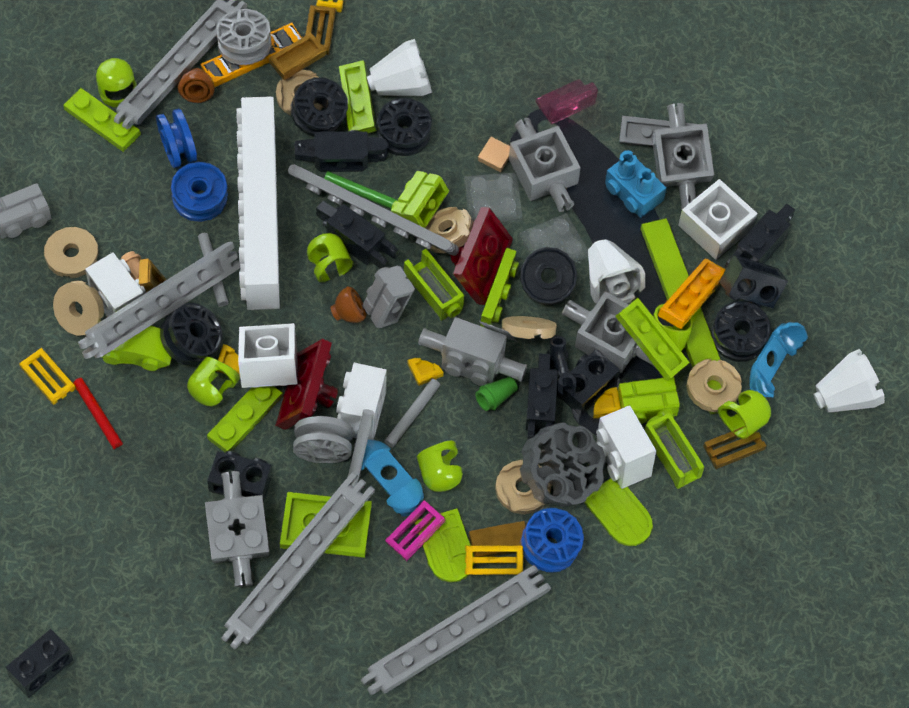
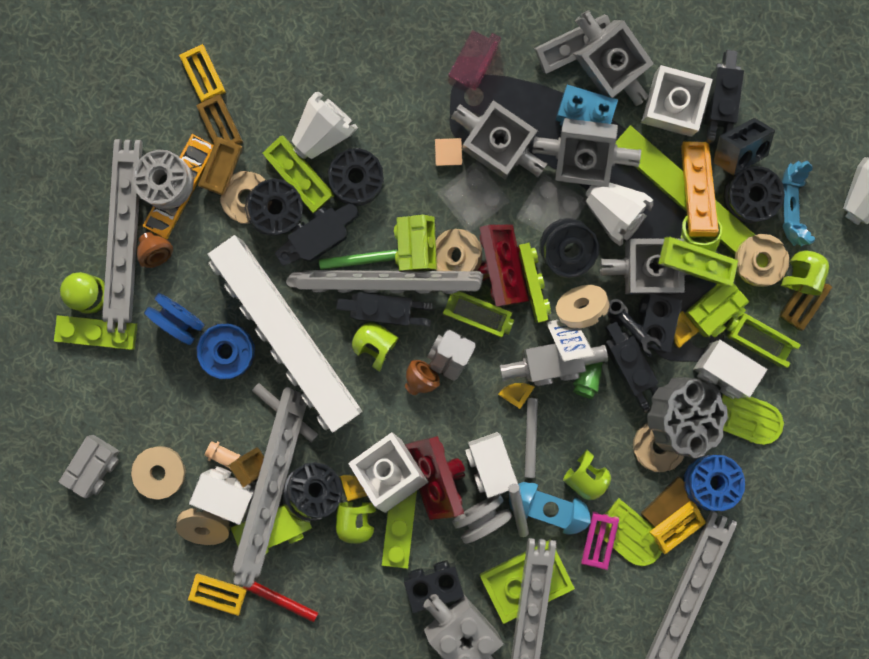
camera: 30 degrees left, 25 degrees up
(616, 224) = (601, 150): none -> light grey brick

